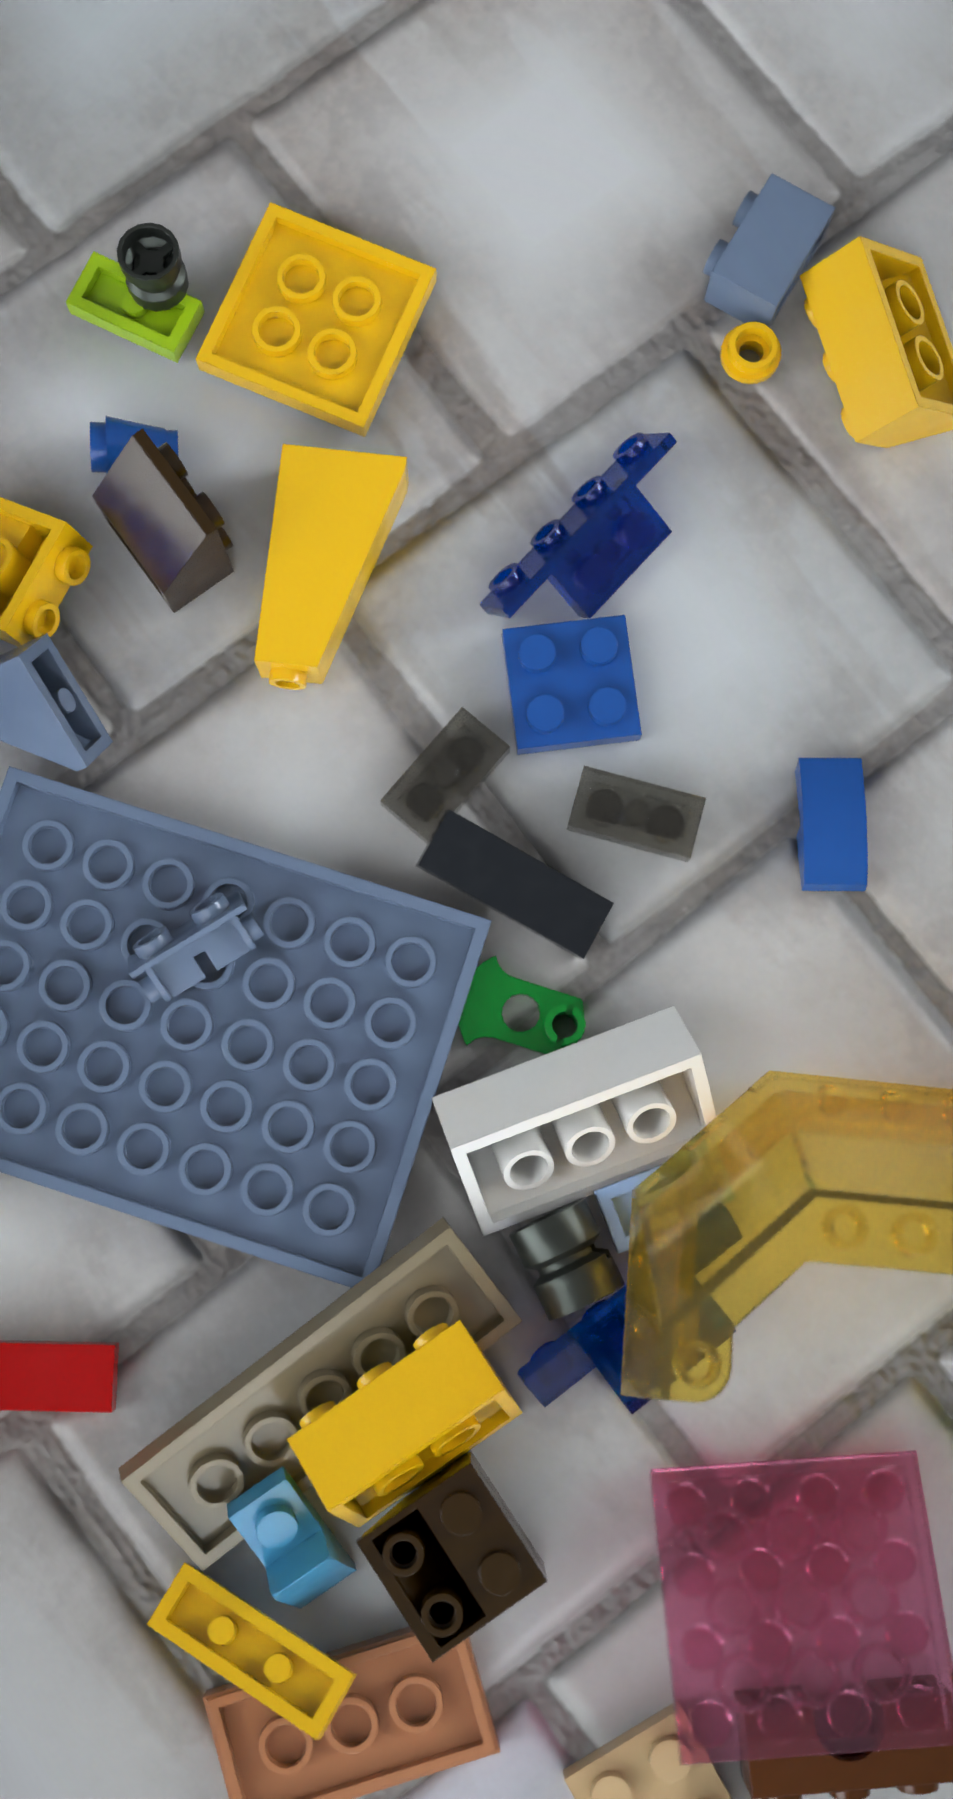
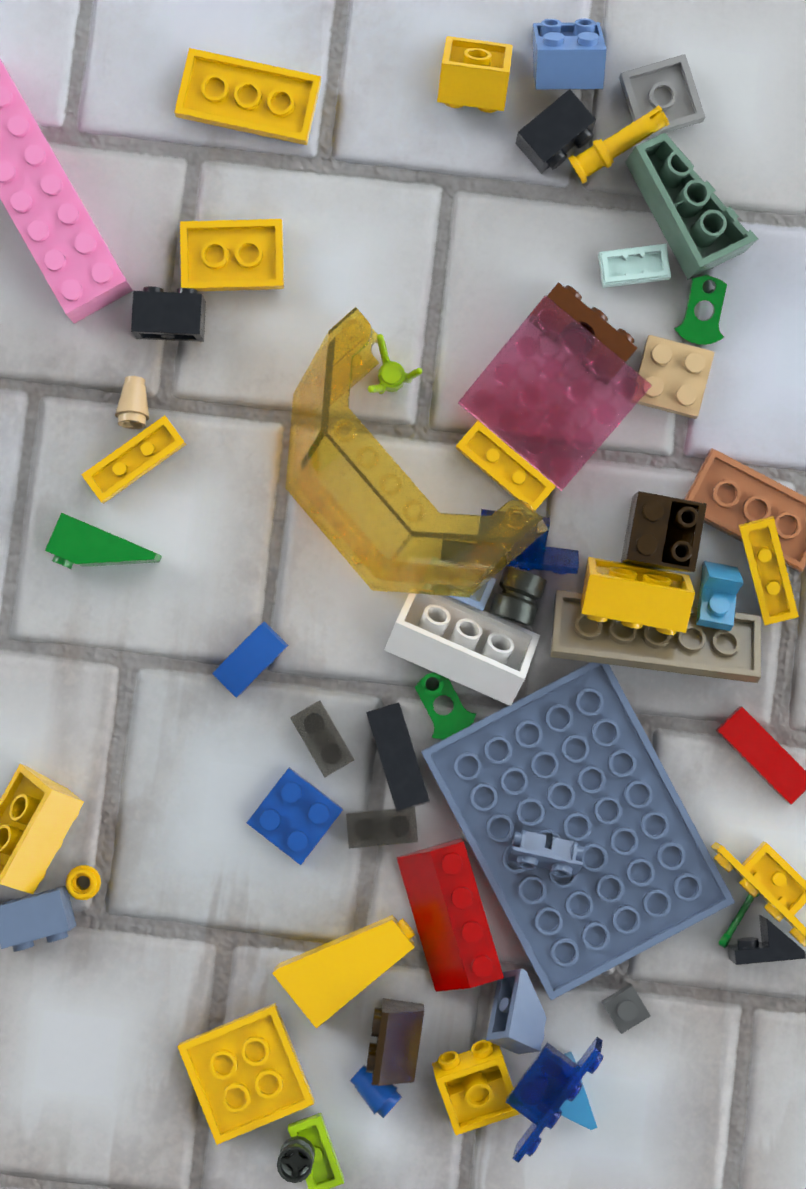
camera: 135 degrees left, 5 degrees up
(243, 750) = (450, 916): none -> red slope
(595, 541) = (227, 865): clear blue bracket -> none
(762, 1426) = (504, 466): none -> yellow plate

